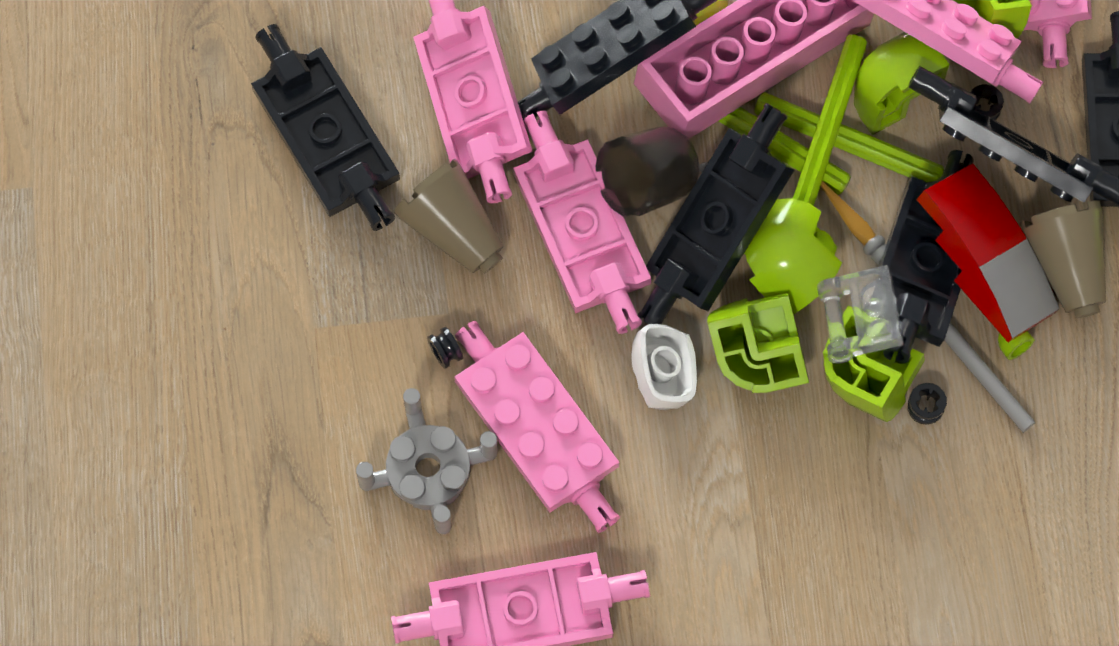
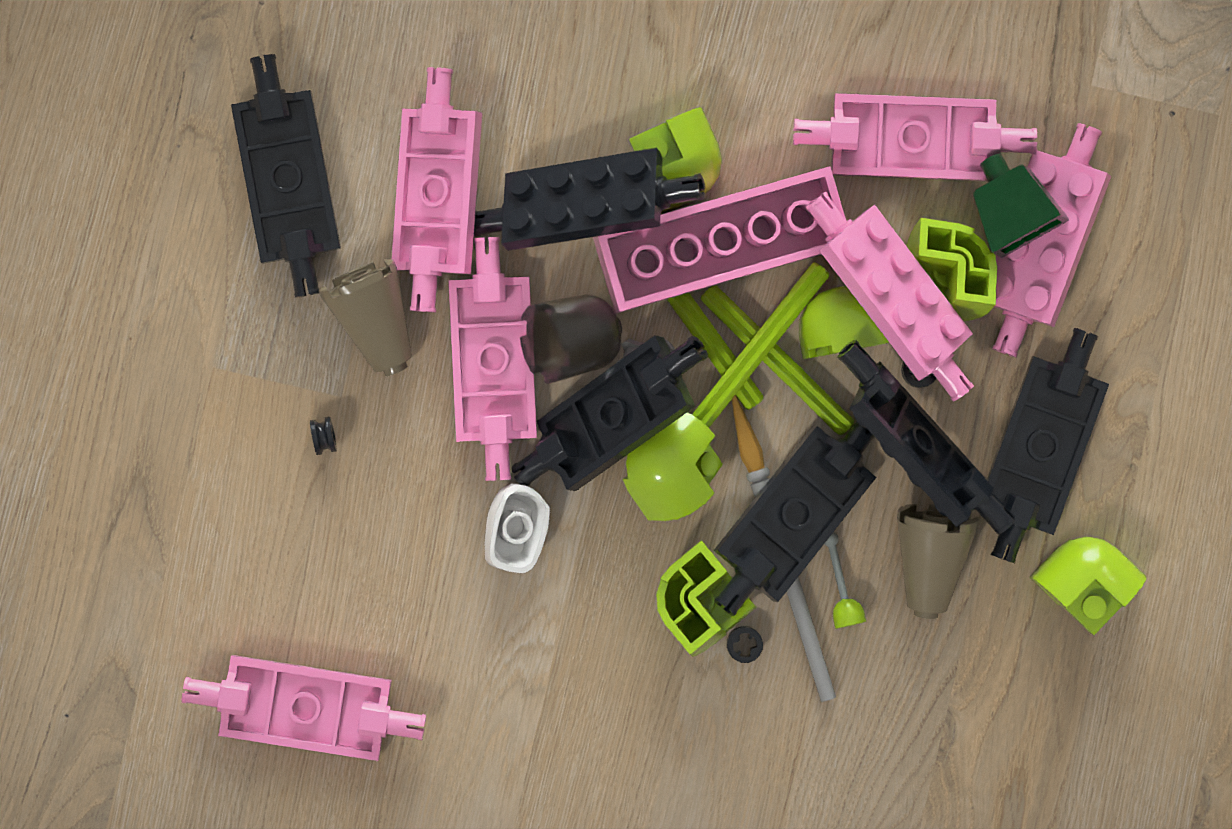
camera: 20 degrees right, 20 degrees up
(427, 442) = (245, 547): light grey plate -> none
(537, 424) = (380, 539): bright pink plate -> none
(758, 344) = (608, 541): lime brick -> none
(873, 312) = (717, 562): clear plate -> none
(992, 252) = (855, 531): red slope -> none

